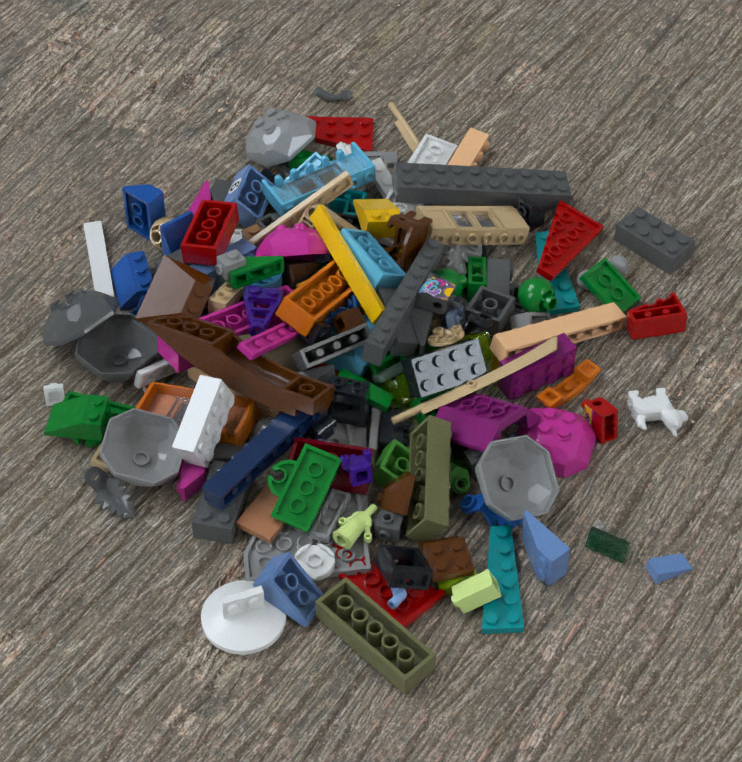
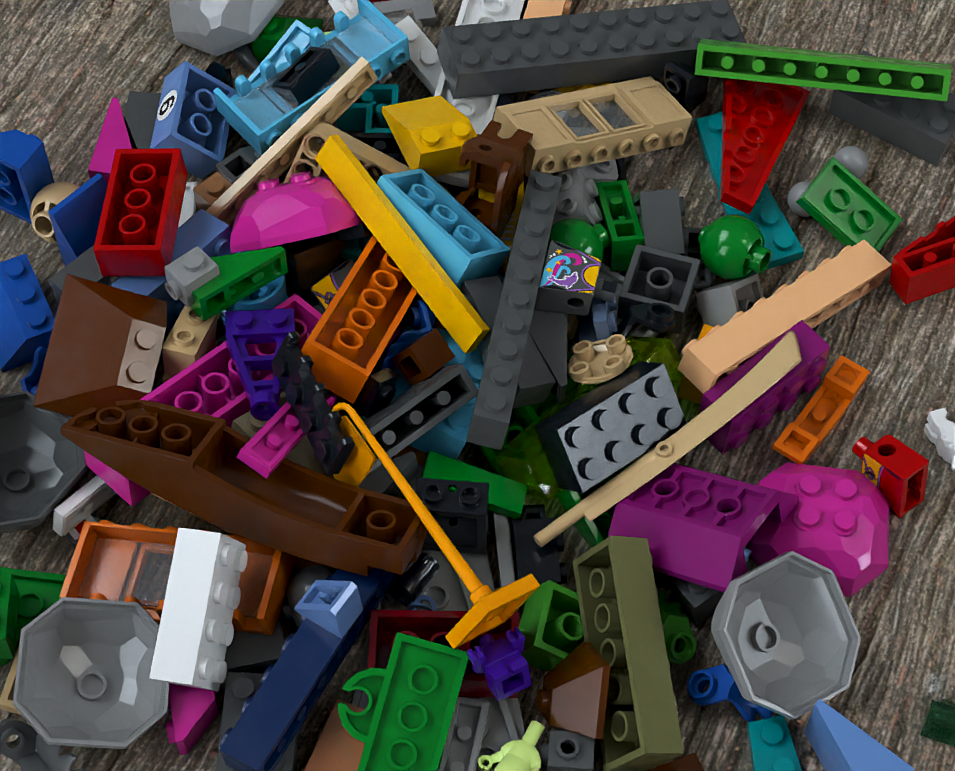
camera: 10 degrees left, 10 degrees up
(274, 427) = (331, 605): none -> medium blue slope
(280, 329) = (310, 406): none -> black hinge
(315, 179) = (307, 75): none -> black slope
(355, 436) = (489, 606): none -> light orange piece
(388, 373) = (517, 437): sand green tile -> none
(609, 211) = (823, 69): none -> bright green brick

